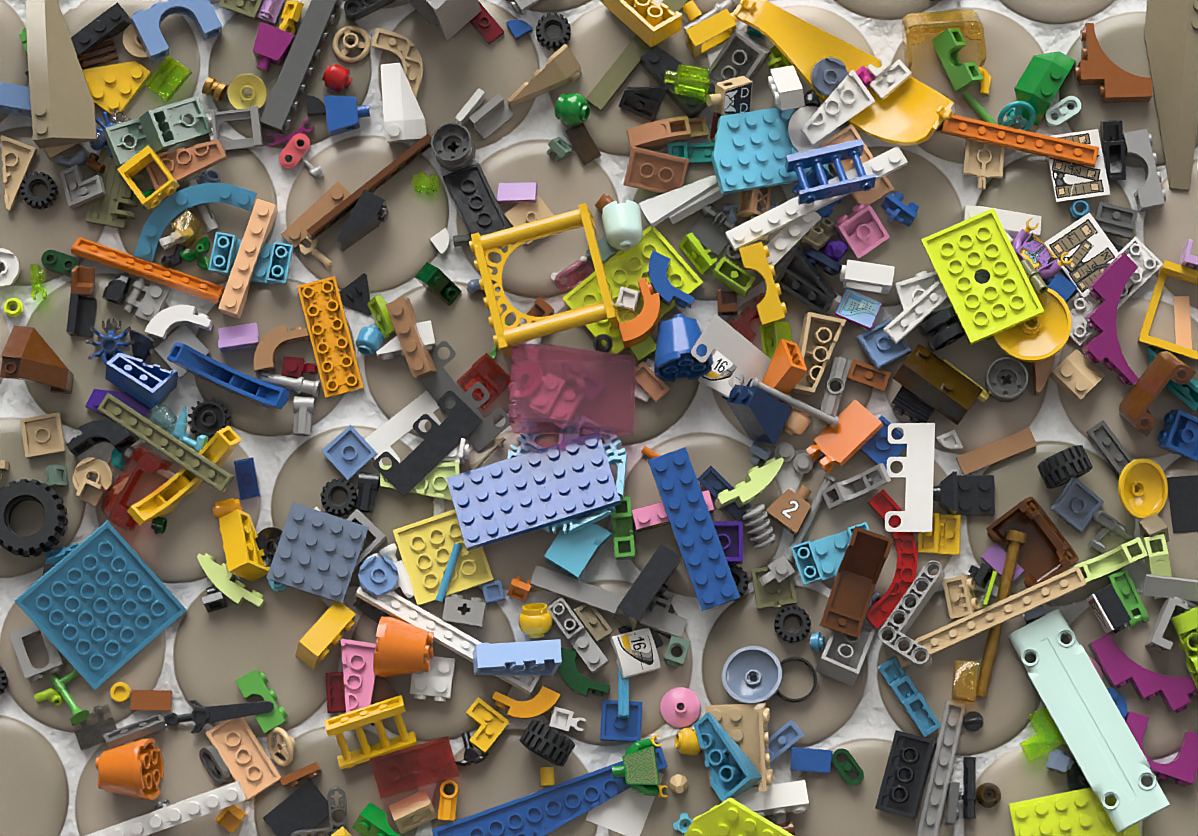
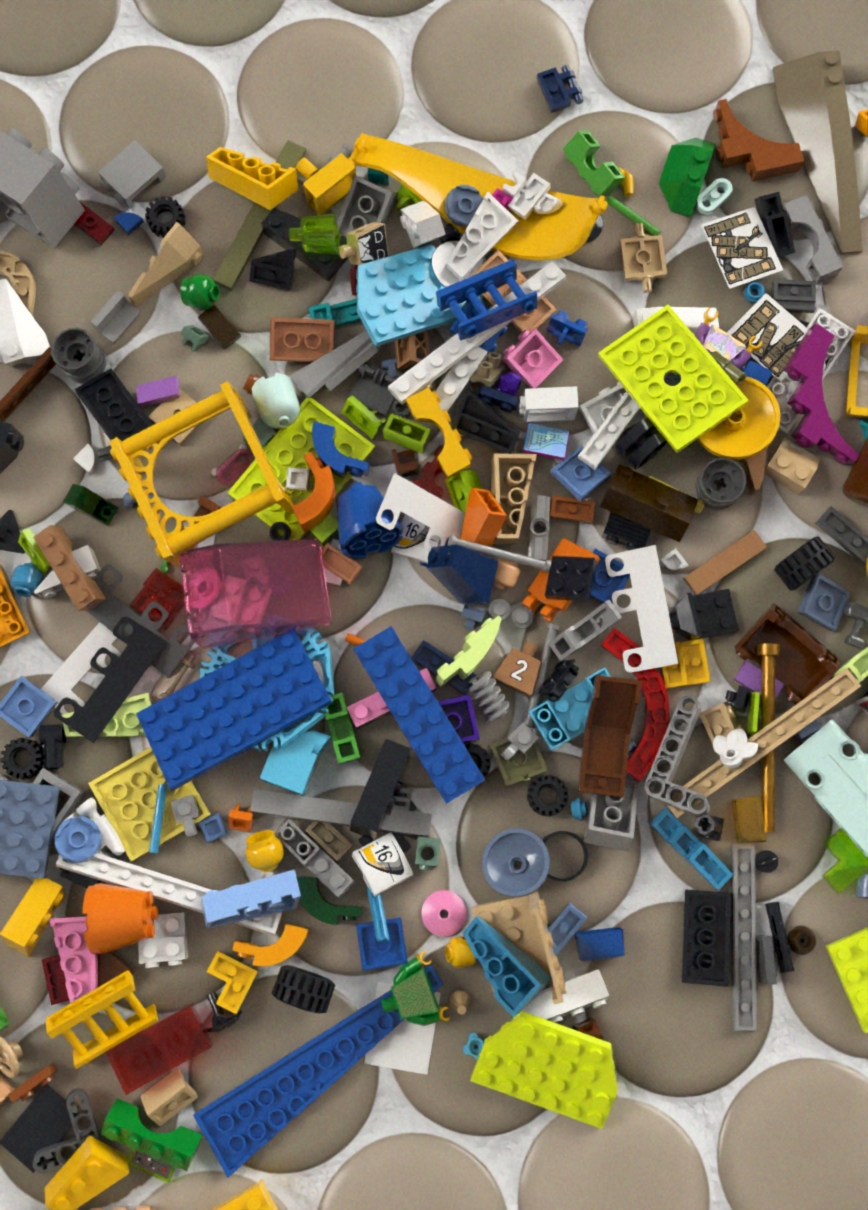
camera: 15 degrees left, 0 degrees up
(422, 181) = (57, 399): clear neon green piece -> none
(448, 803) = (206, 1078): light orange piece -> none
(459, 453) = (147, 683): white bracket -> none
(469, 108) = (93, 306): white tile -> none
(472, 619) = (197, 861): light grey brick -> none
(474, 572) = (186, 811): none -> light grey plate
(547, 776) = (311, 1024): yellow hinge -> none
(563, 719) = (316, 955): white plate -> none
(667, 130) = (304, 294): nougat slope -> none
(817, 529) = (553, 686): none -> black hinge
(848, 766) = (641, 941): dark green plate -> none
(853, 437) = (570, 578): none -> black plate
(905, 90) = (547, 204): none -> white tile
(917, 24) = (544, 139): clear yellow windscreen -> none
(928, 680) = (710, 827): none -> black piece
(964, 615) = (736, 746): none -> white plate
(1014, 109) = (660, 206): teal piece -> none
(1020, 140) = (677, 232): orange tile -> none

